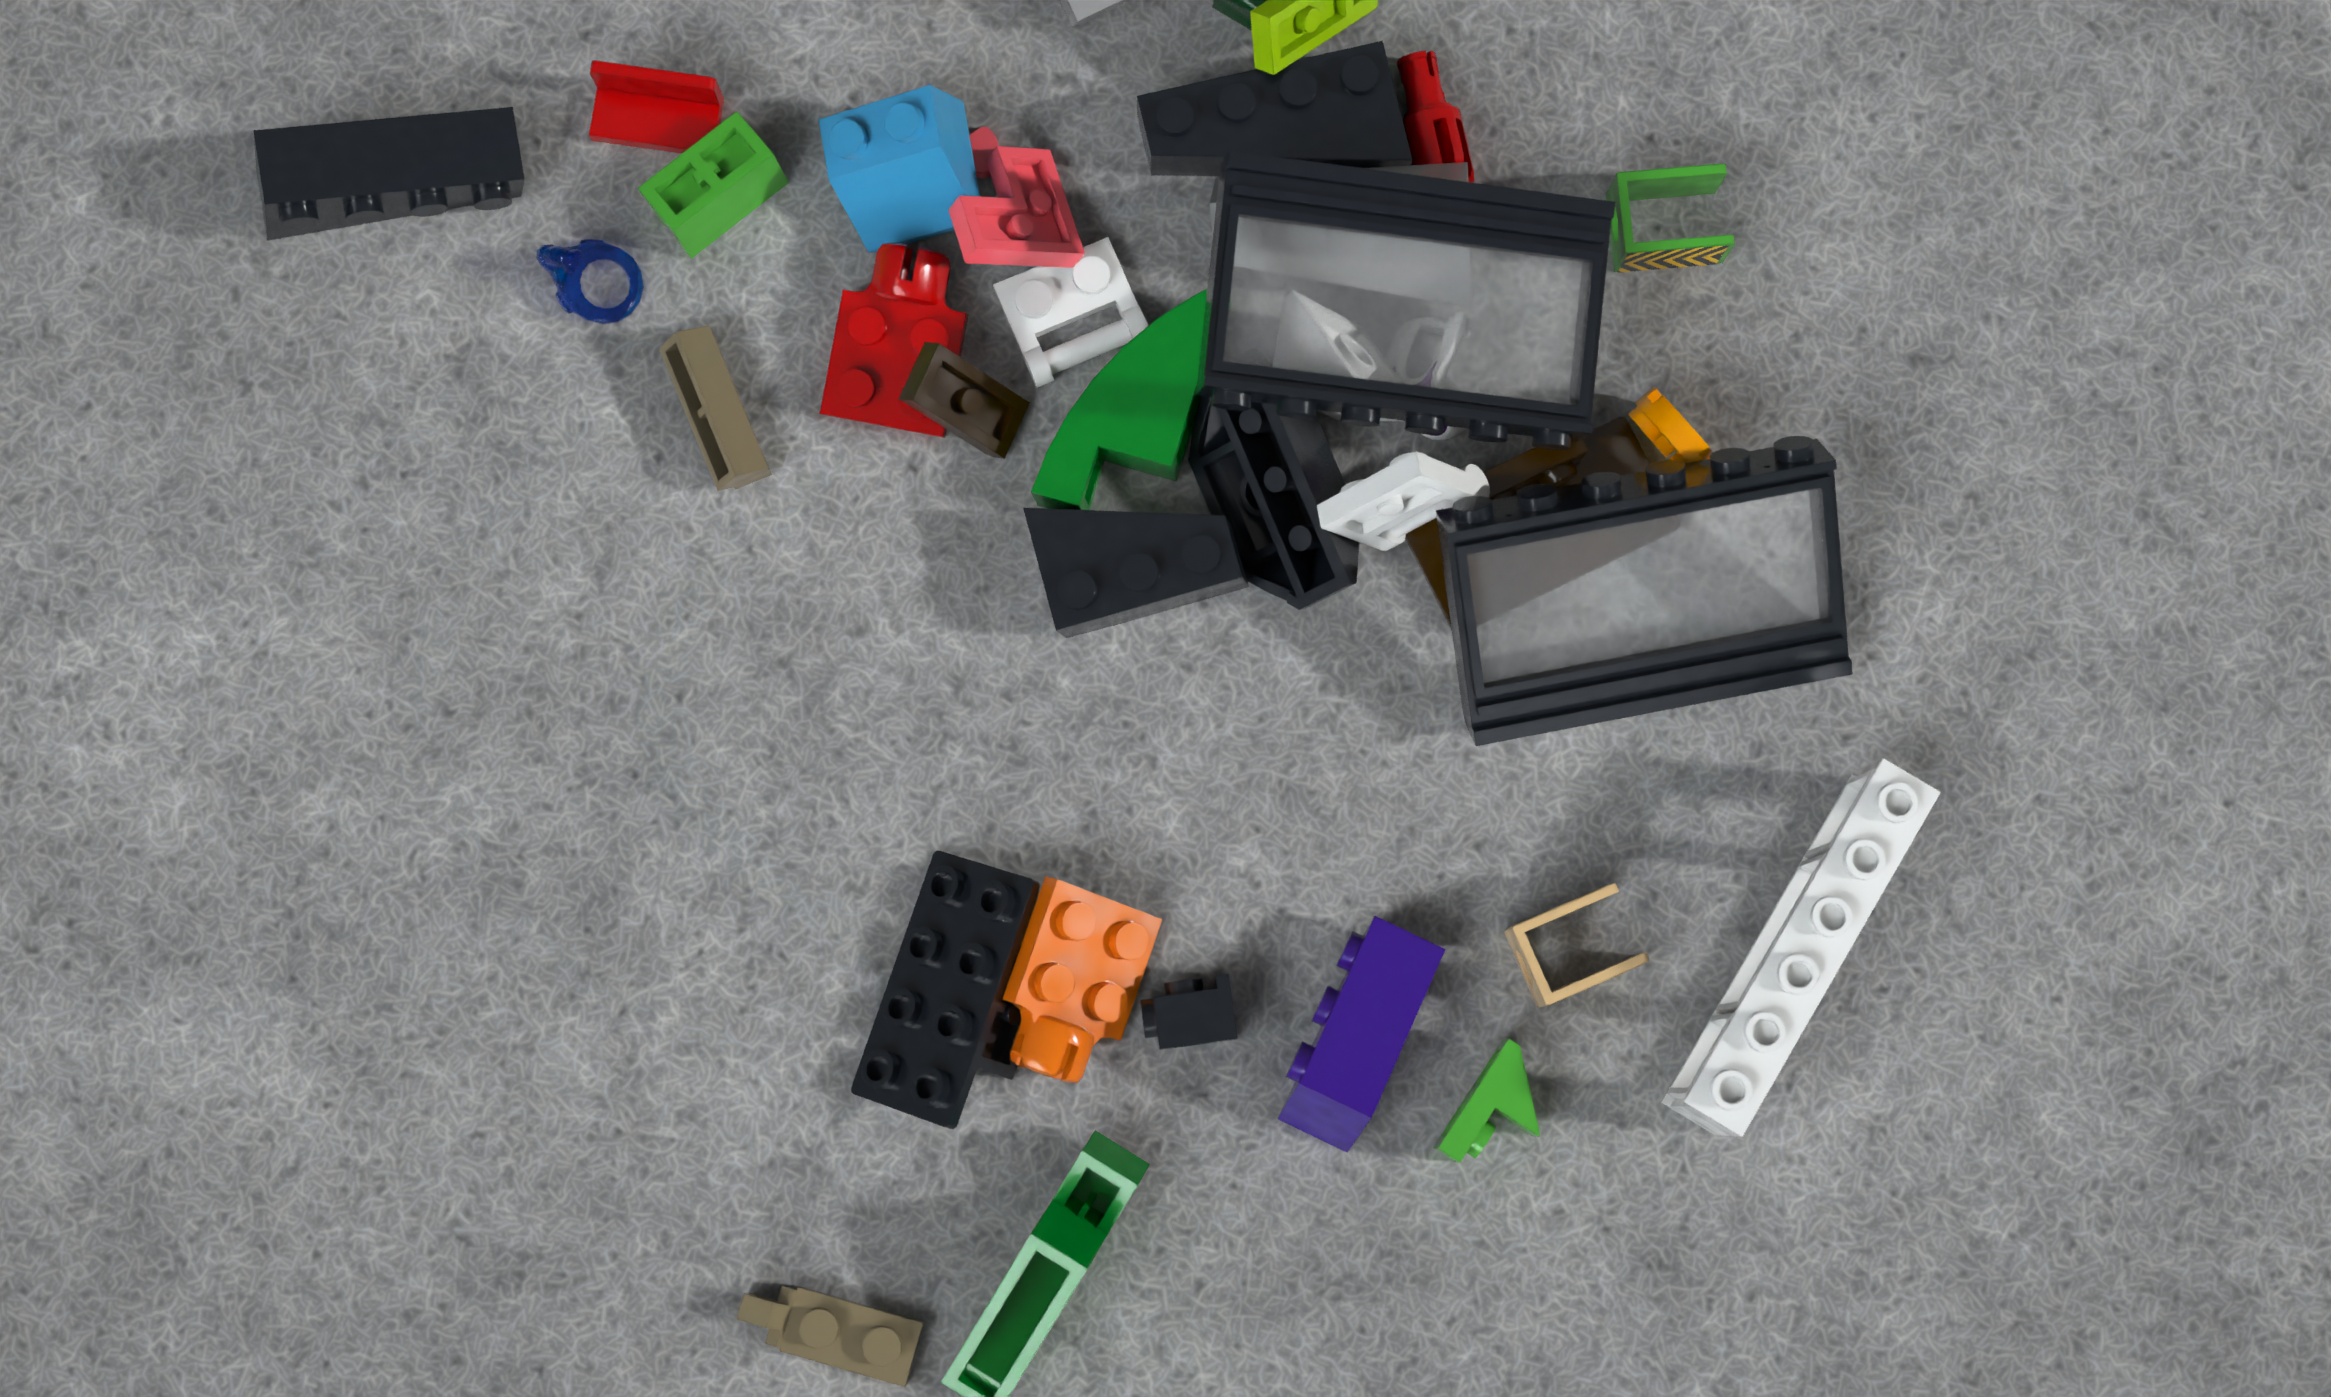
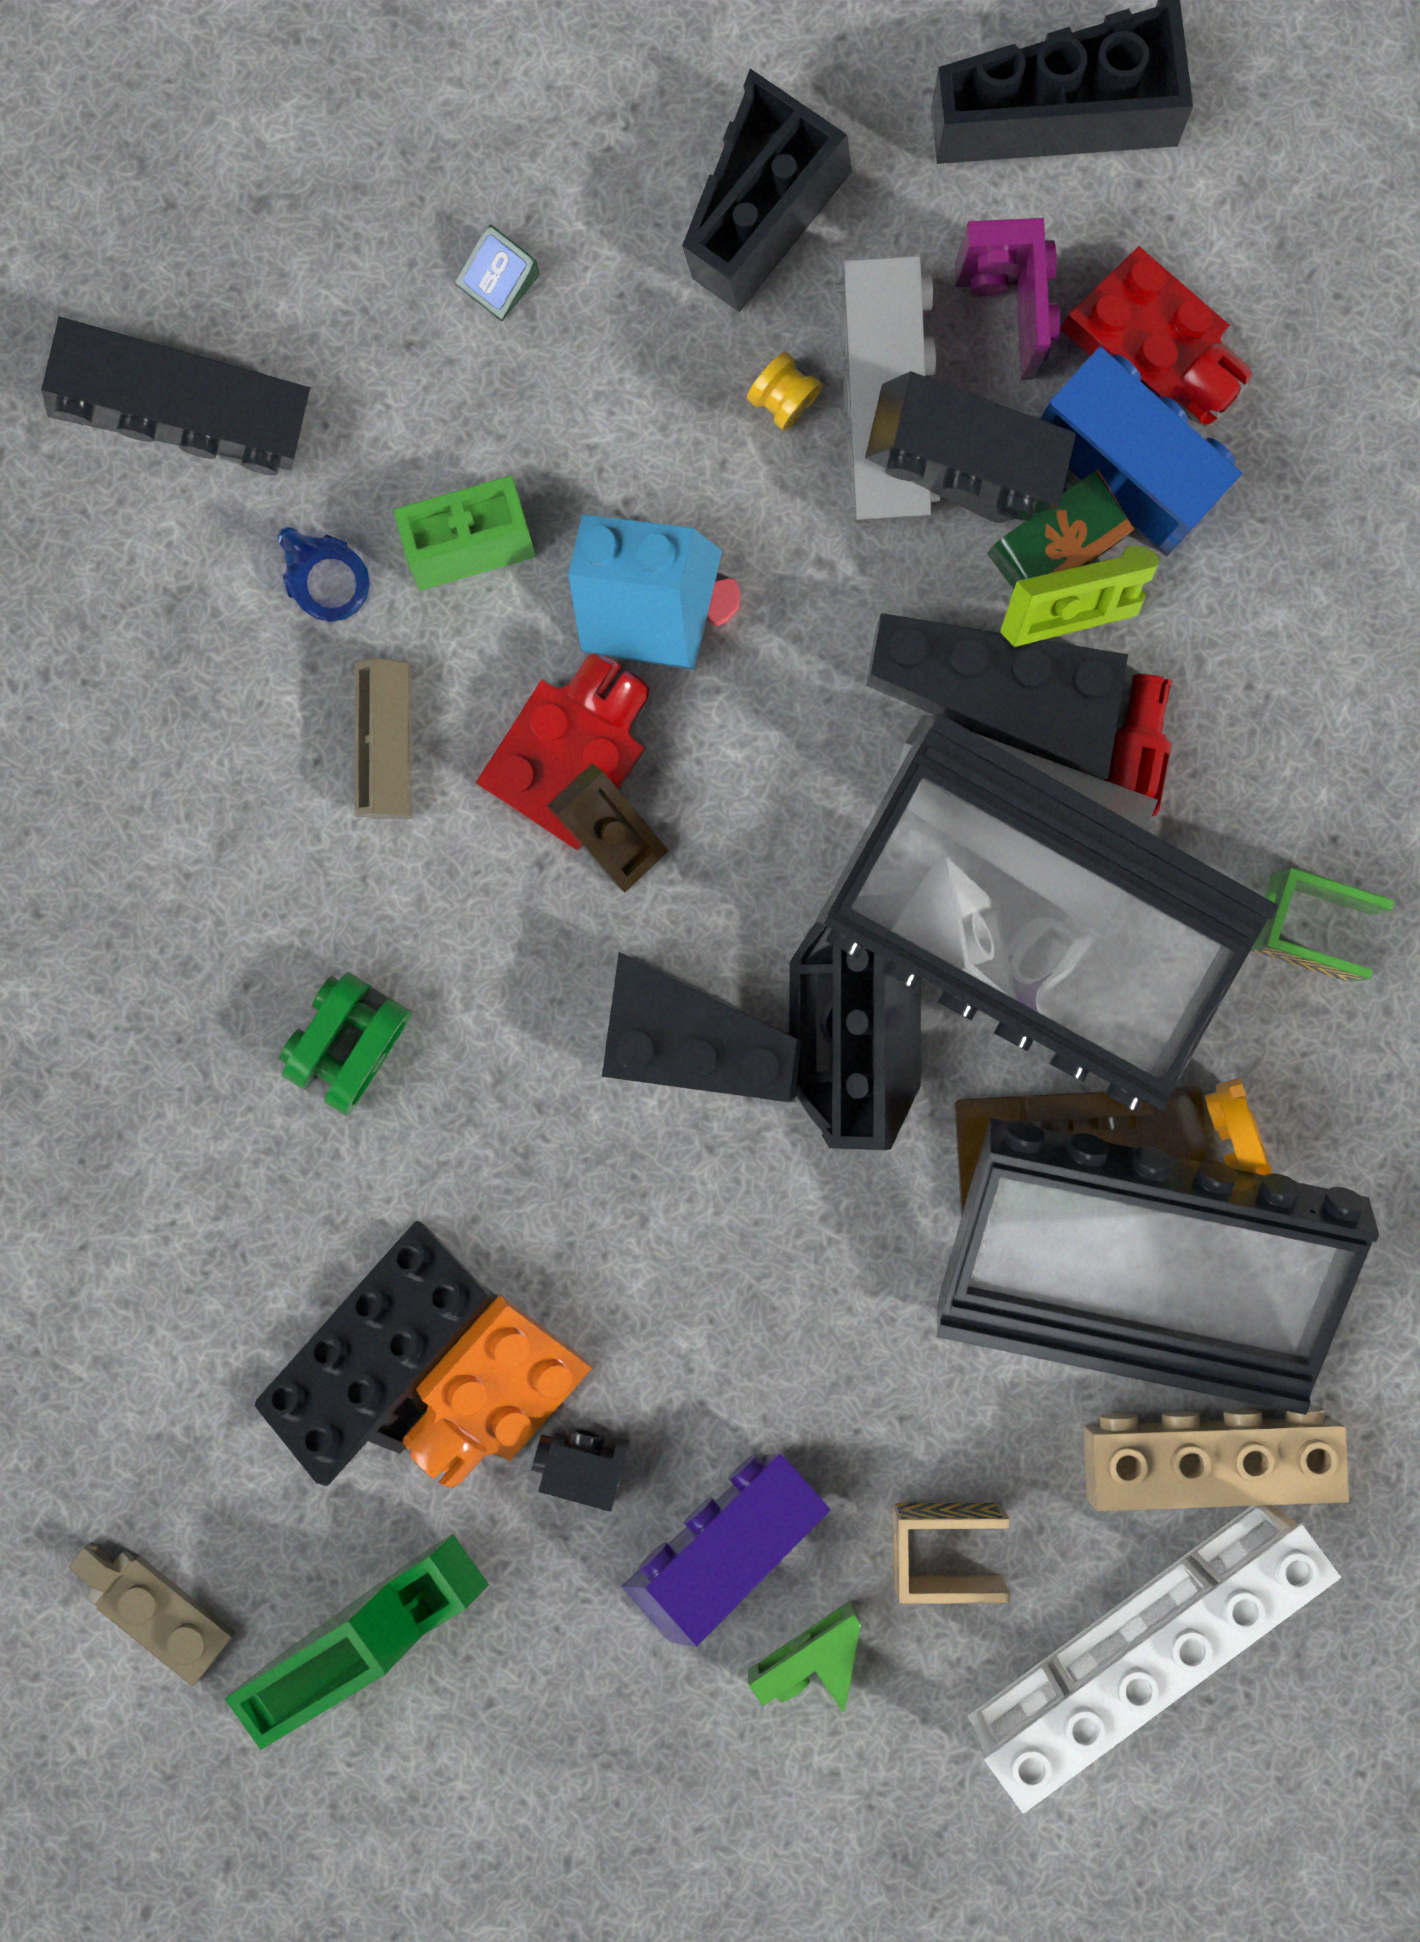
camera: 25 degrees right, 5 degrees up
(653, 107) = (440, 439): red panel -> none
(767, 730) = (338, 1006): none -> green brick
(1026, 220) = (736, 686): coral plate -> none
(1057, 296) = (741, 763): white plate -> none
(1130, 413) = (756, 899): green slope -> none
(1399, 499) = (972, 1090): white plate -> none
(1789, 757) = (1215, 1461): none -> tan brick

